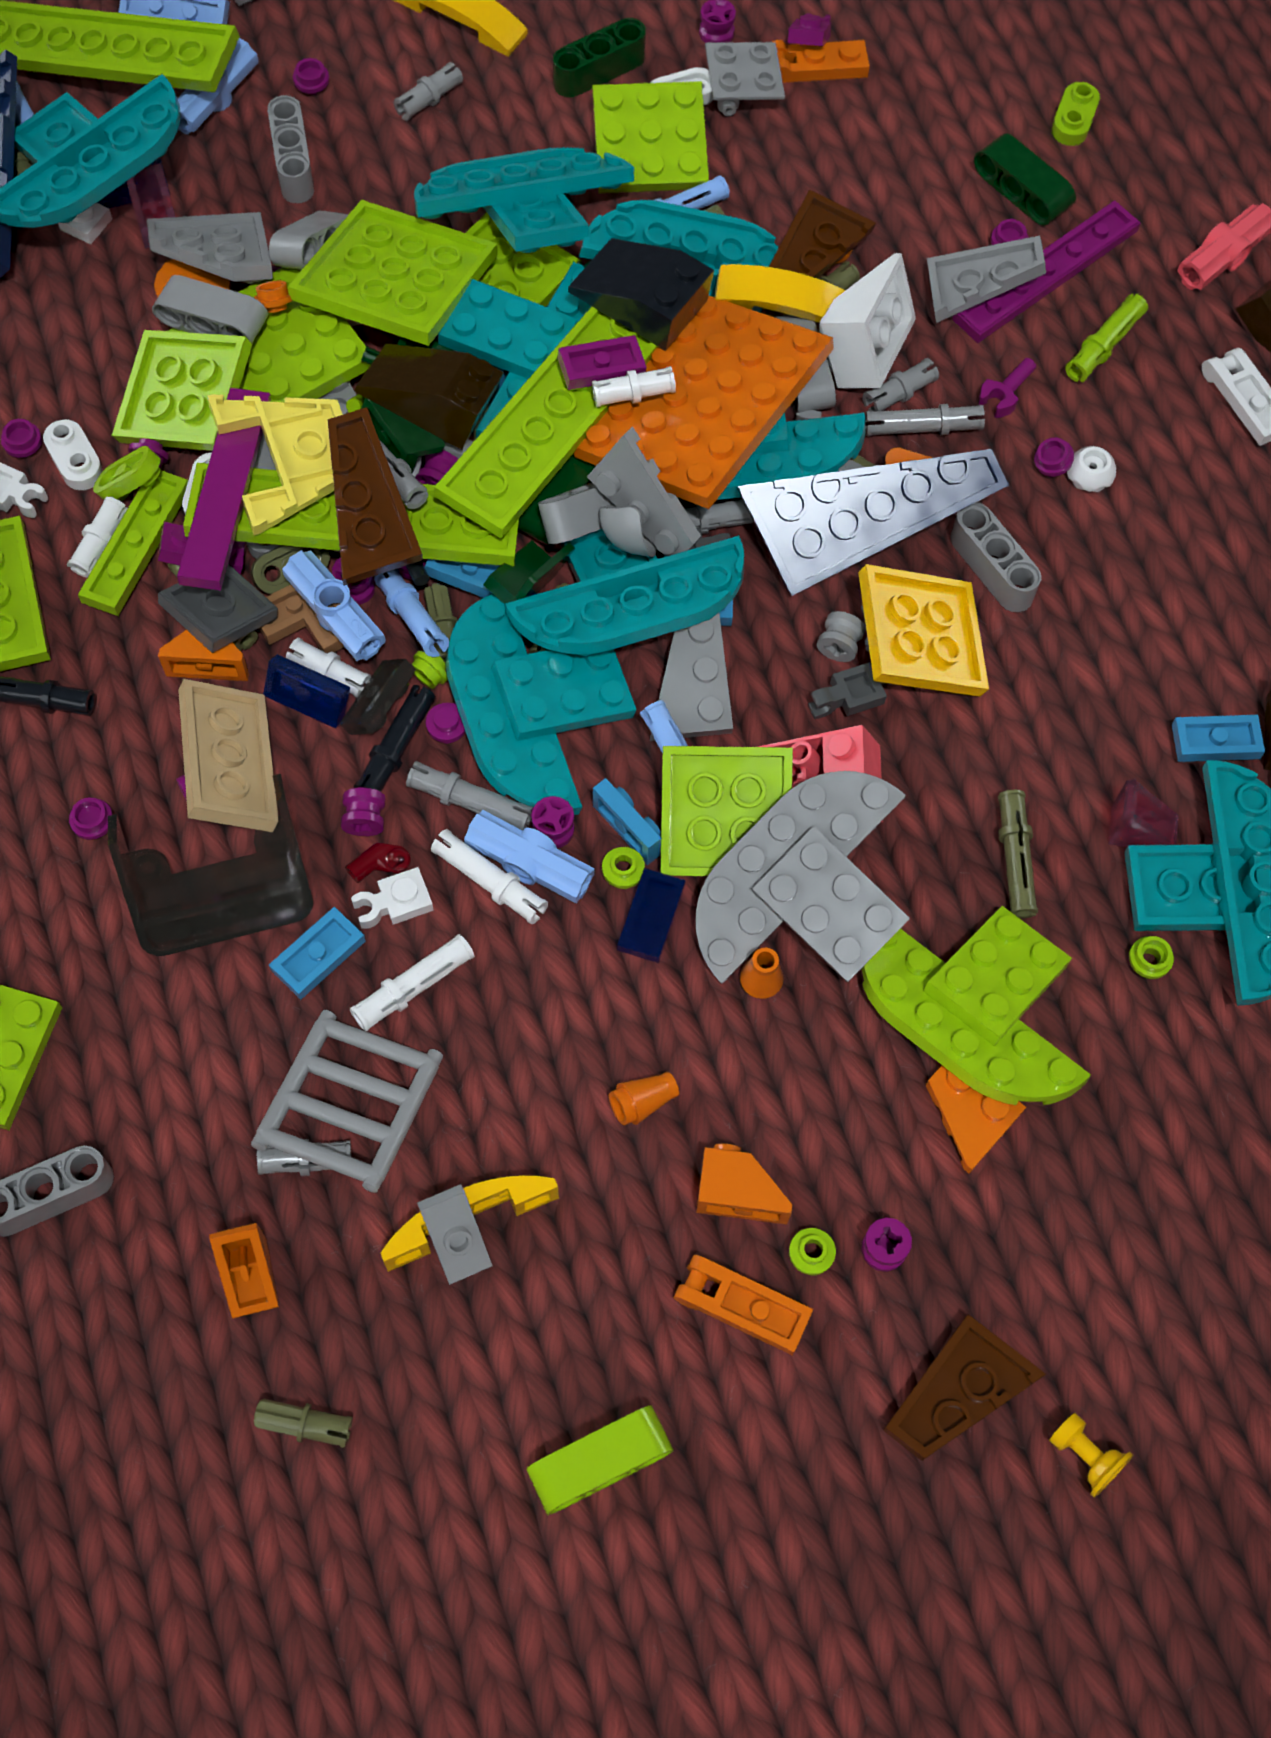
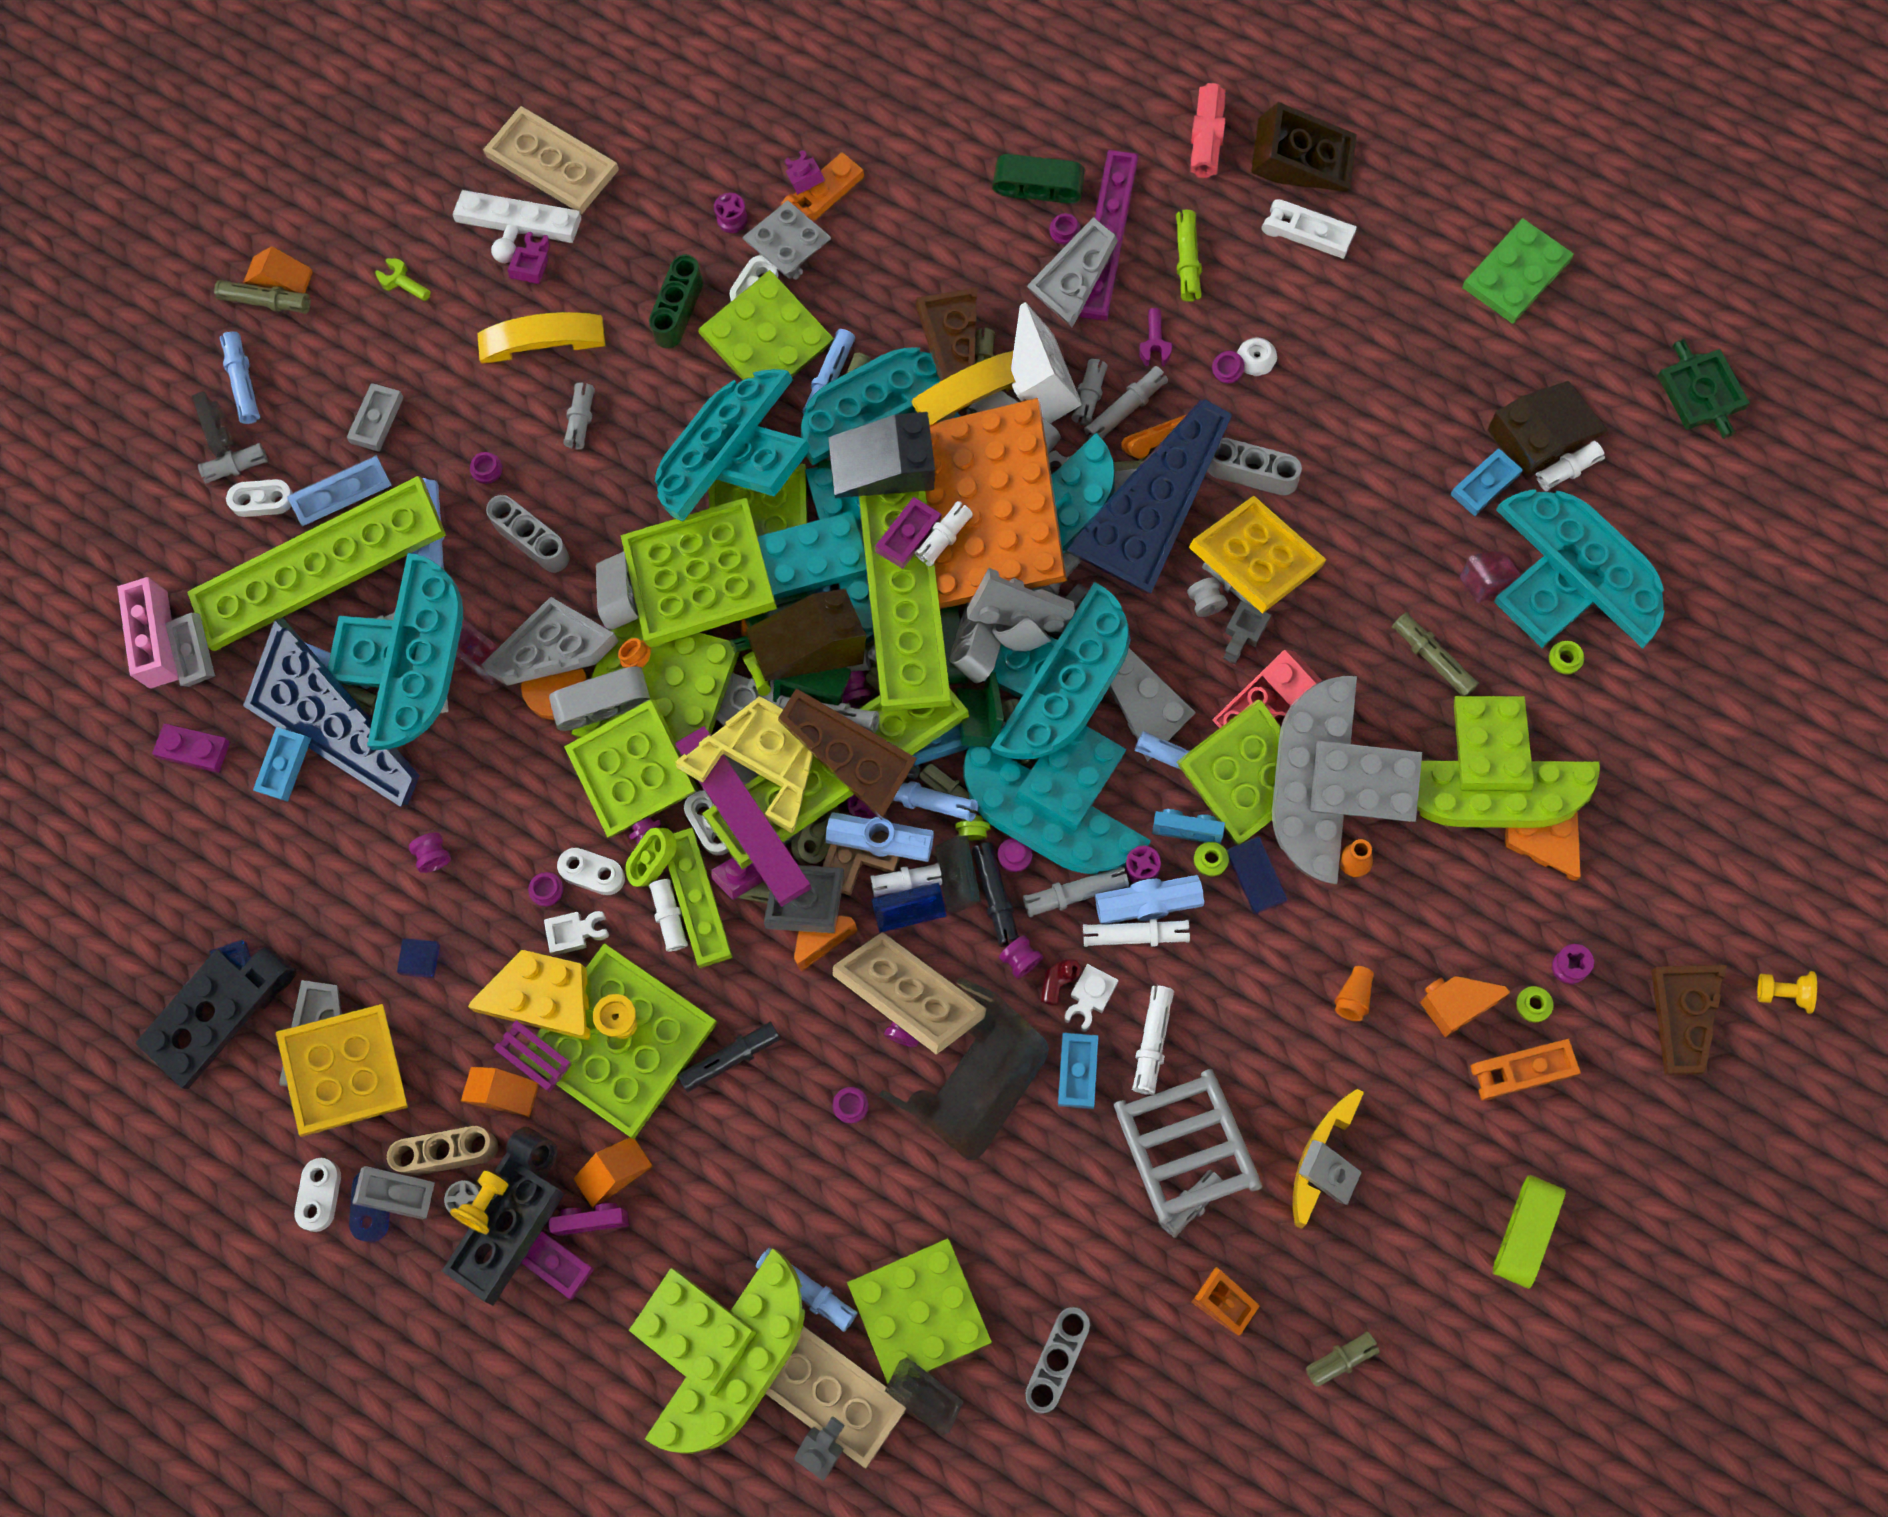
camera: 30 degrees left, 5 degrees up
(1075, 113) = (1024, 100): lime plate -> none

